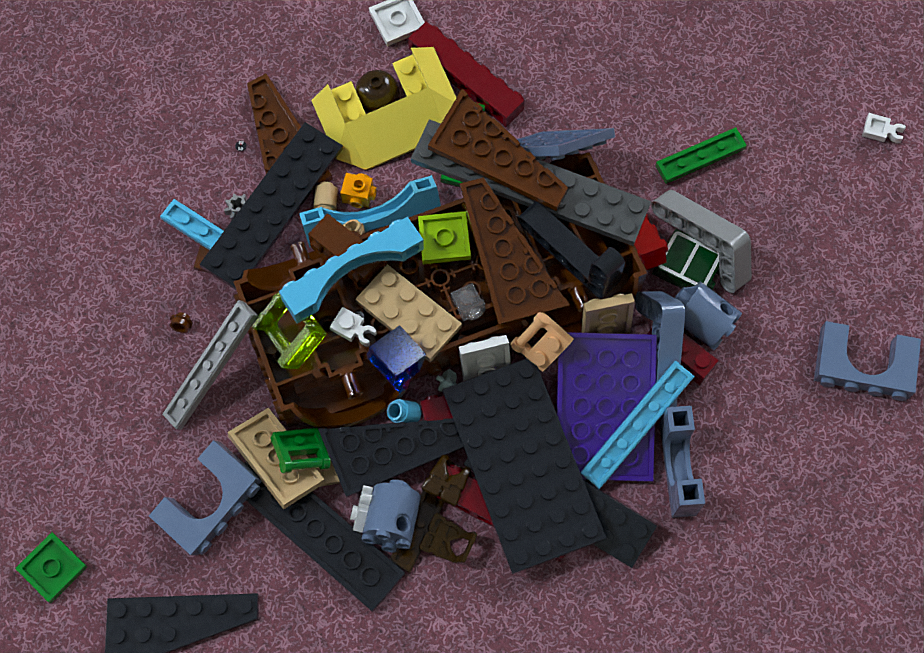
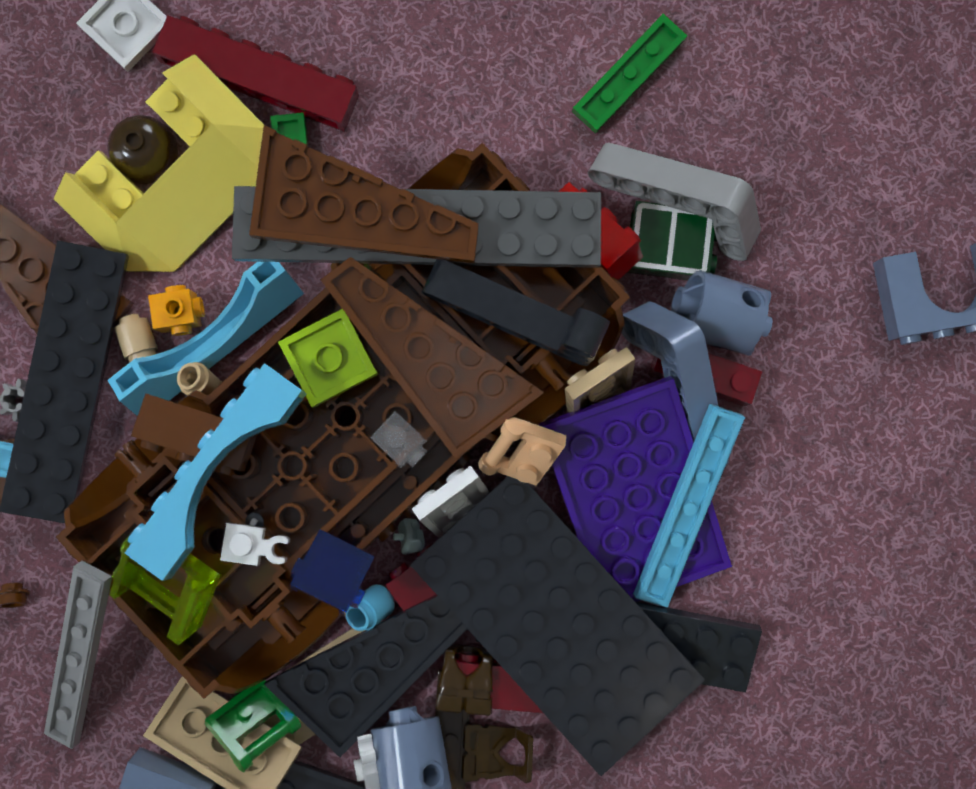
camera: 30 degrees left, 15 degrees up
(398, 302) = (322, 488): tan plate -> none
(564, 142) = (432, 142): sand blue plate -> none
(684, 491) = (784, 578): sand blue arch -> none

